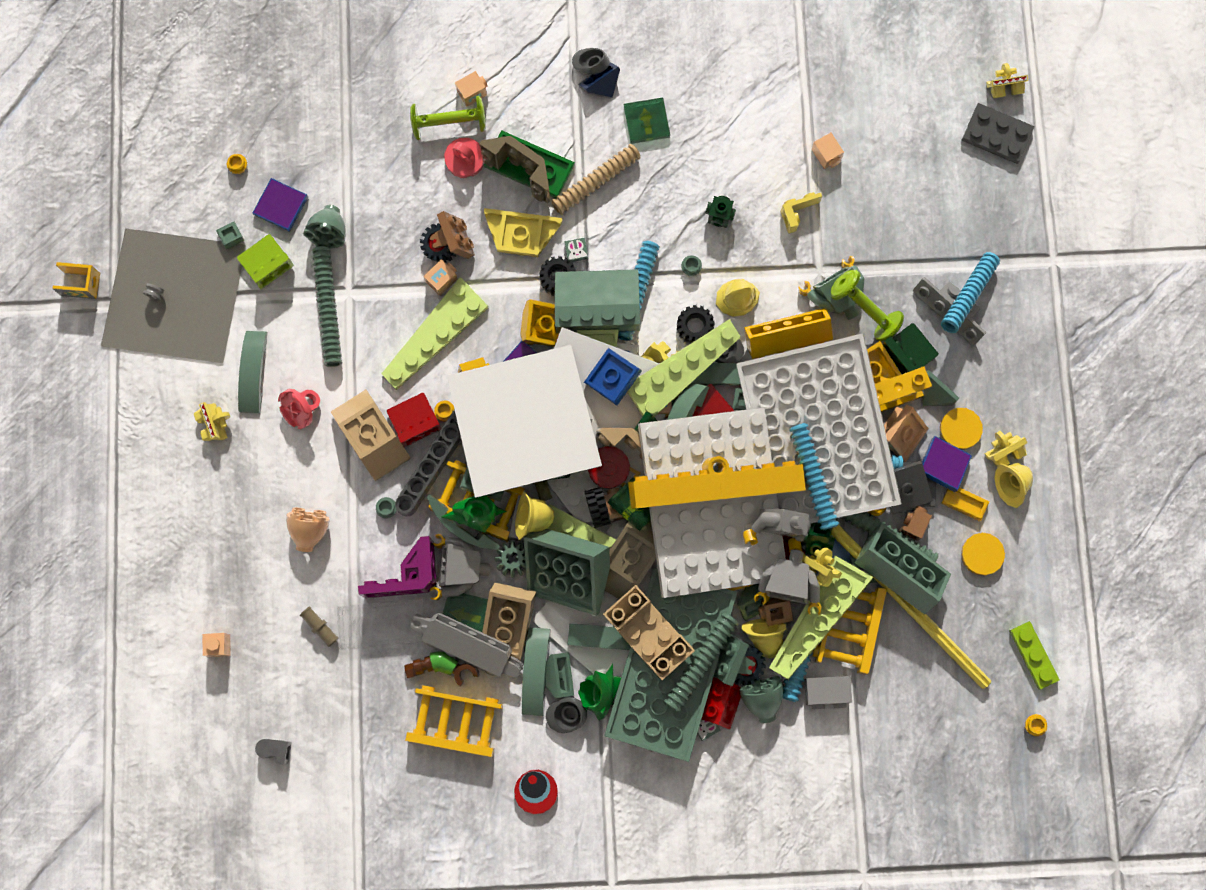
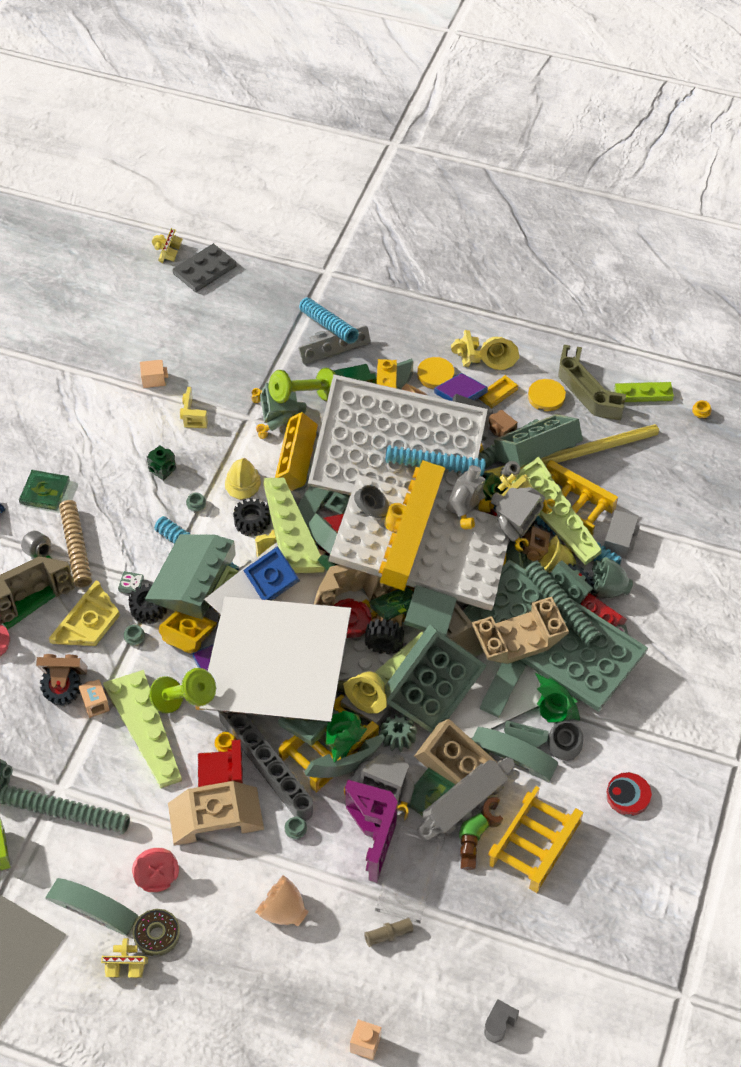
camera: 70 degrees left, 25 degrees down
(238, 429) = (156, 919): none -> tile
(458, 365) = (197, 688): none -> lime hose
(521, 280) = (134, 635): none -> sand green plate
(577, 146) = (36, 544): none -> flat silver head
(629, 541) = (430, 608): none -> sand green tile
(722, 437) = (372, 501): none -> dark grey hat
(846, 554) = (509, 468): none -> light grey pin
(1010, 590) = (588, 389): none -> olive piece

